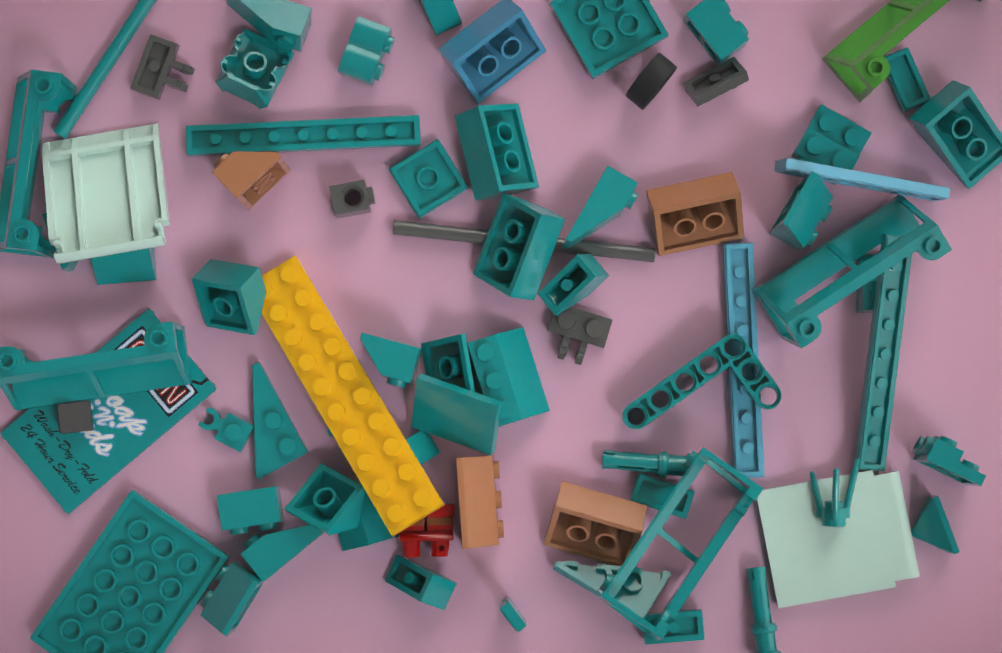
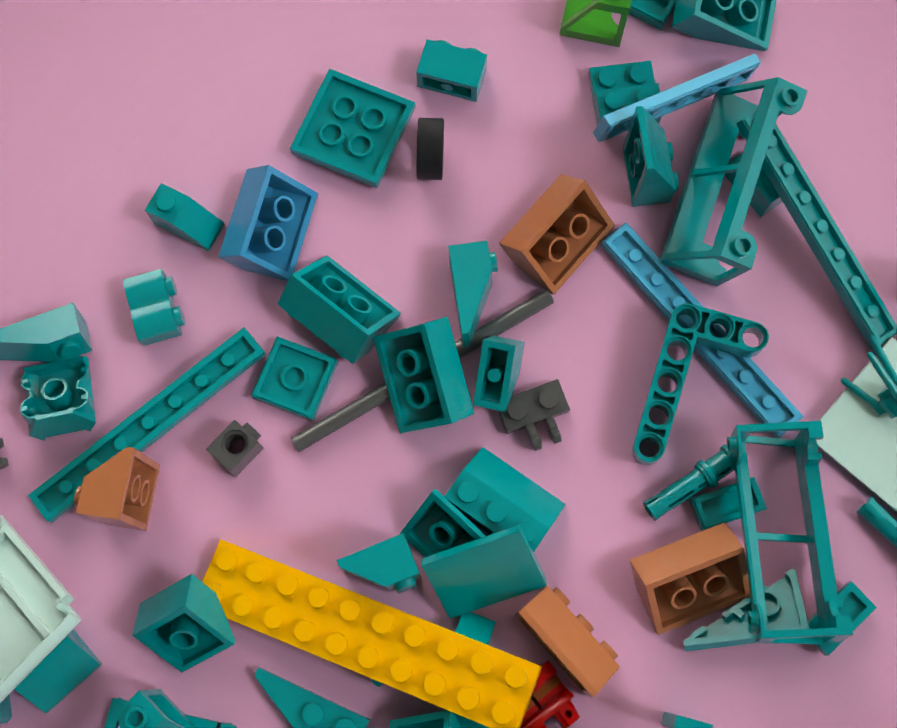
camera: 35 degrees left, 10 degrees down
(716, 81) = (486, 112): dark grey plate -> none

